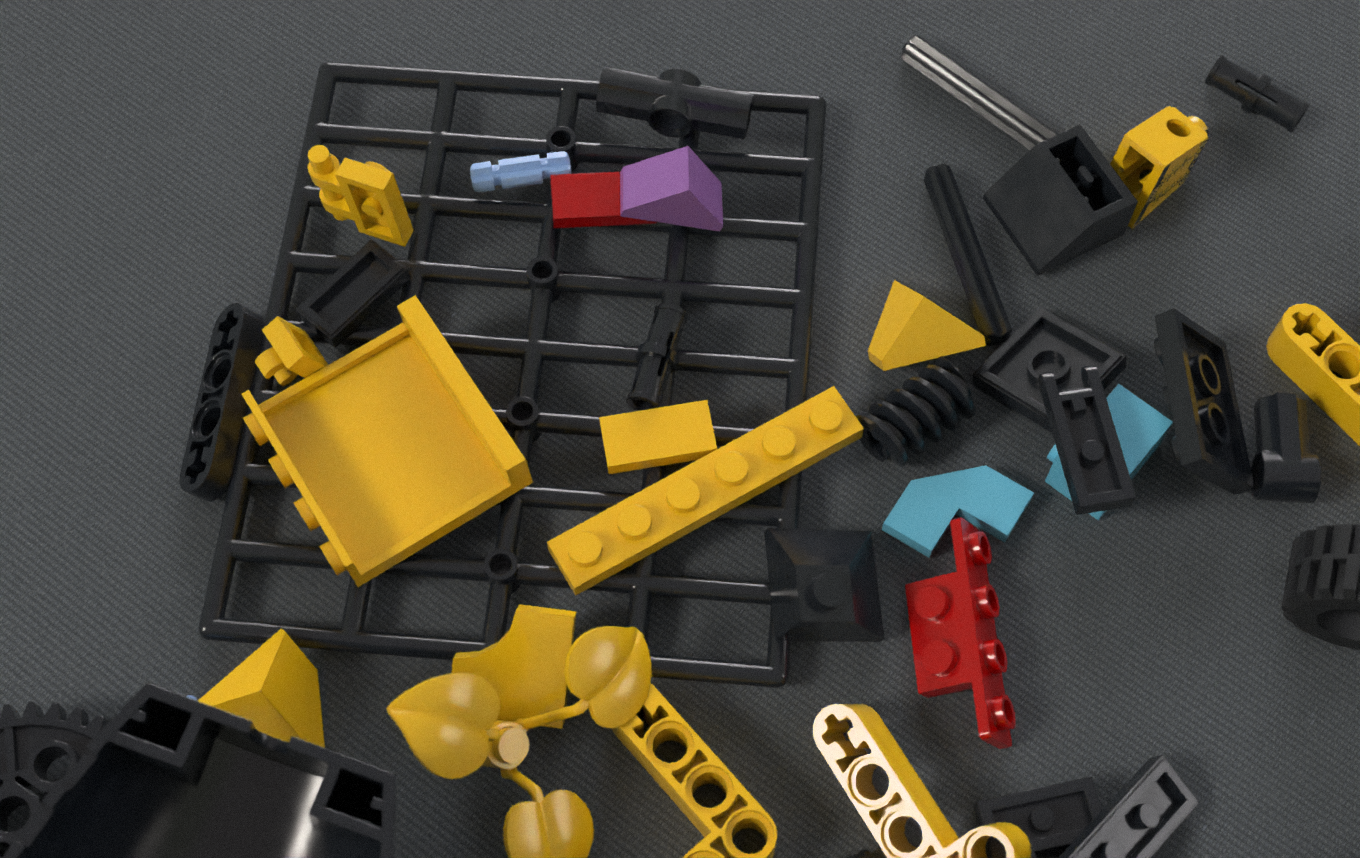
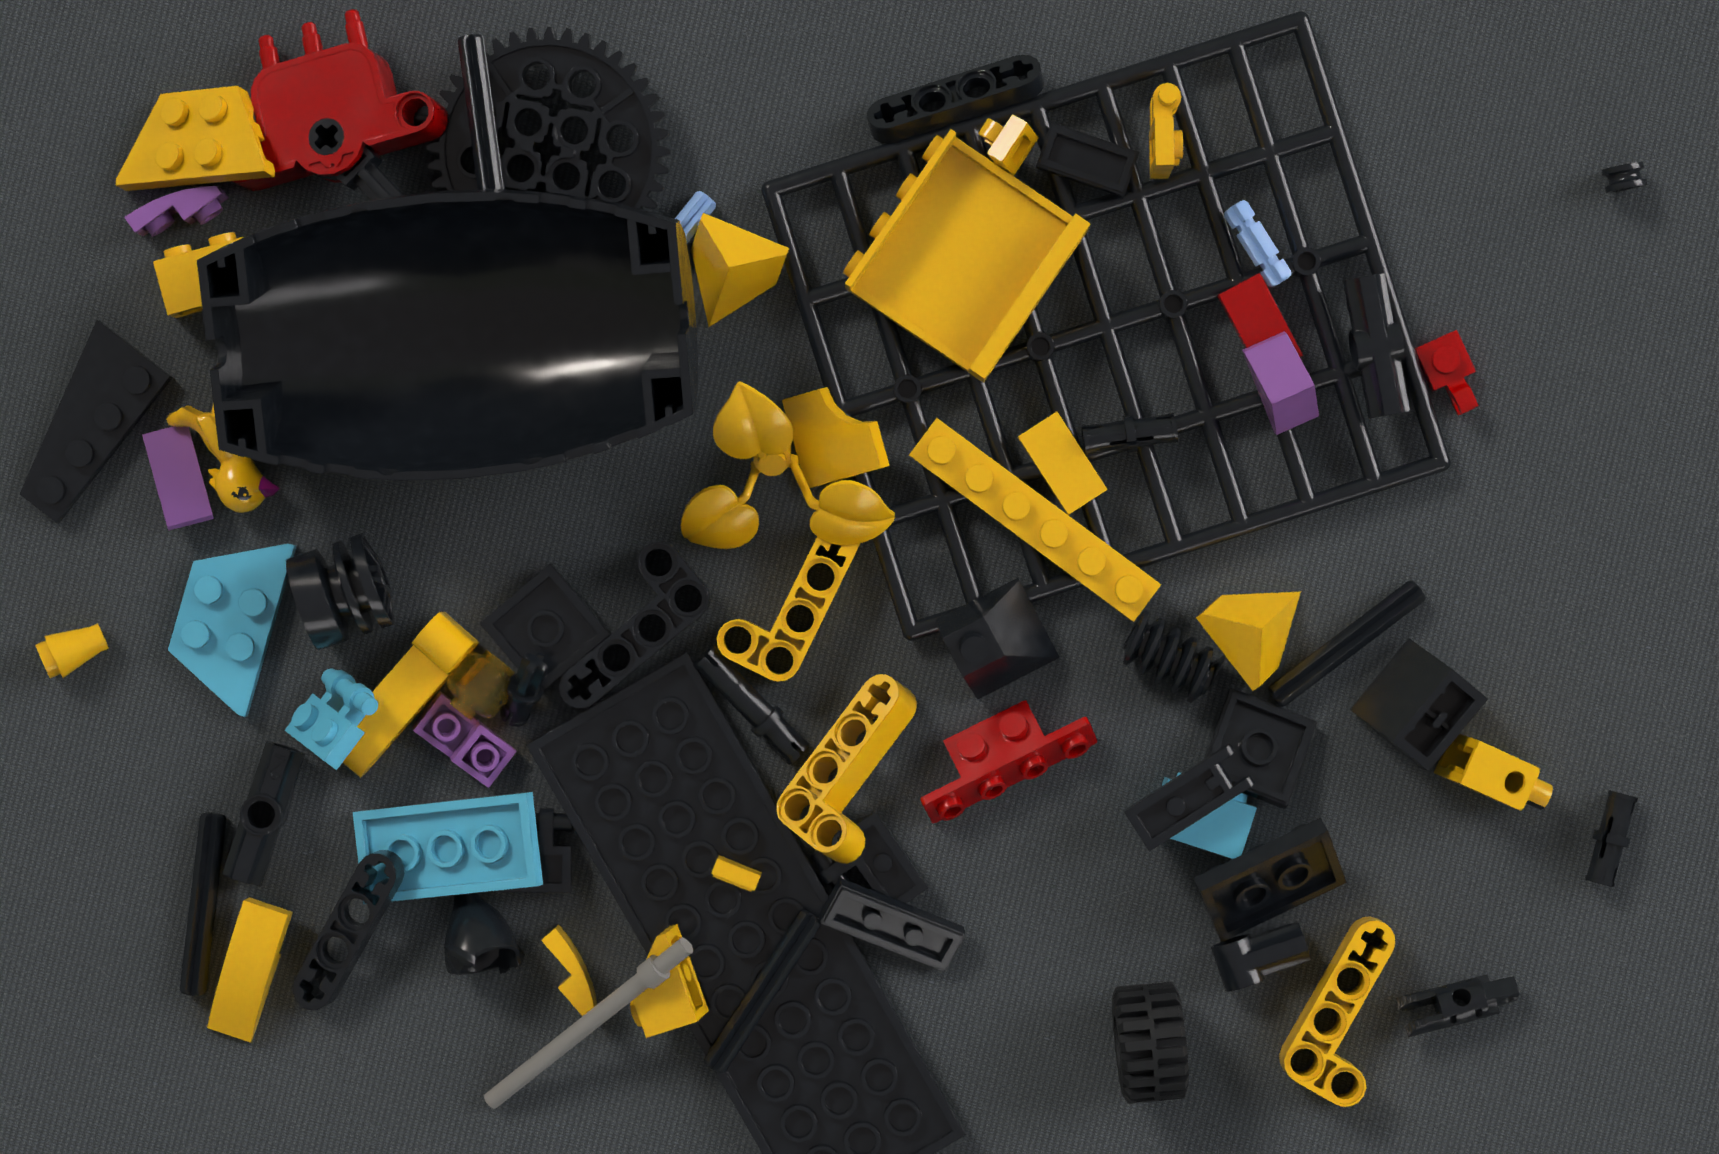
camera: 65 degrees right, 25 degrees up
(727, 70) = (1446, 365): none -> red plate
(973, 493) = (1125, 728): medium azure tile -> none
(975, 93) = (1511, 602): axle -> none

